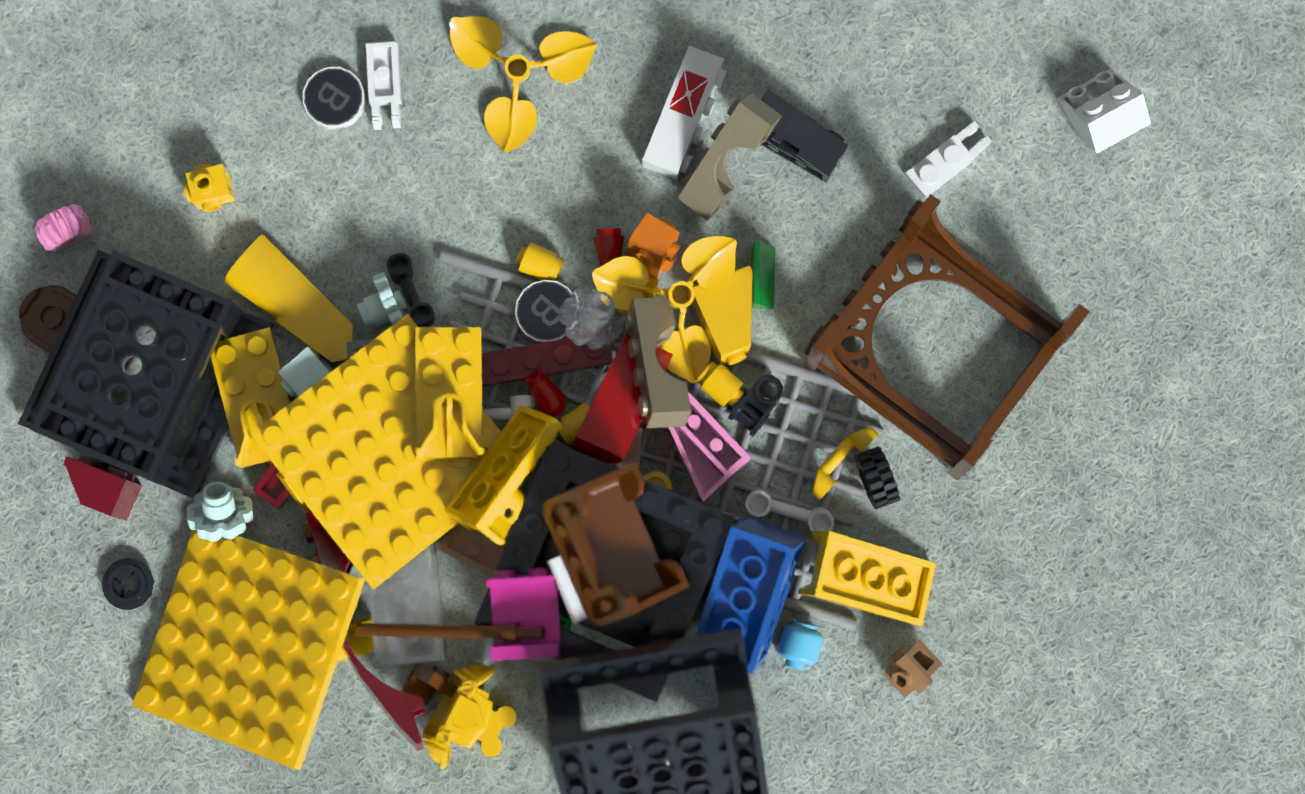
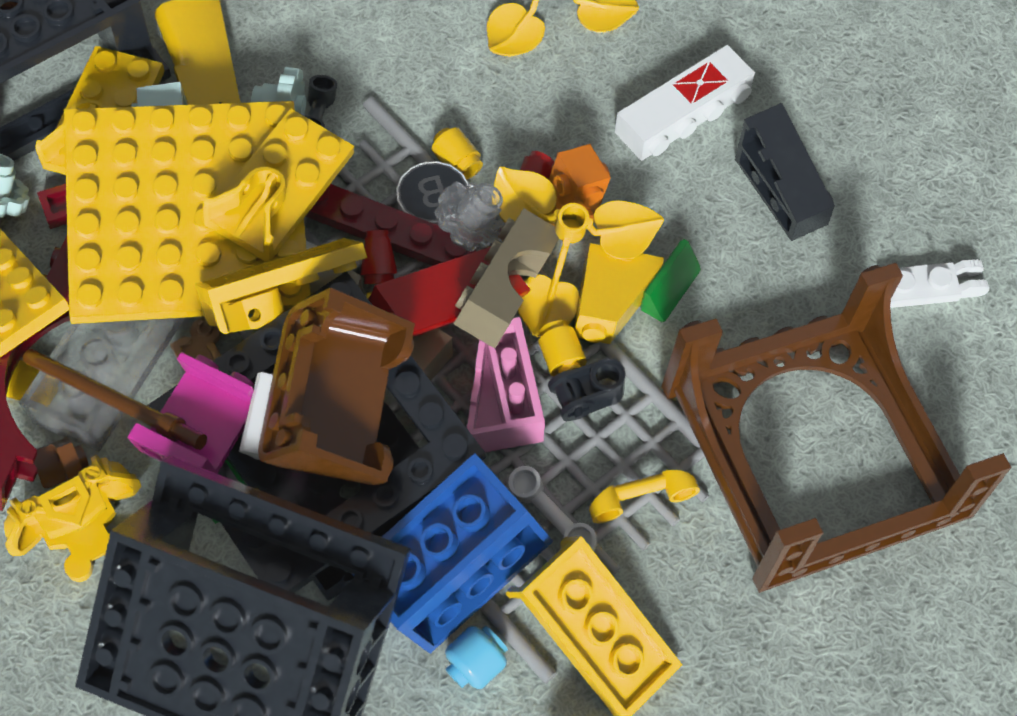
camera: 25 degrees right, 20 degrees down
(747, 127) = (668, 168): dark tan arch -> none
(877, 477) = (670, 526): black tyre -> none

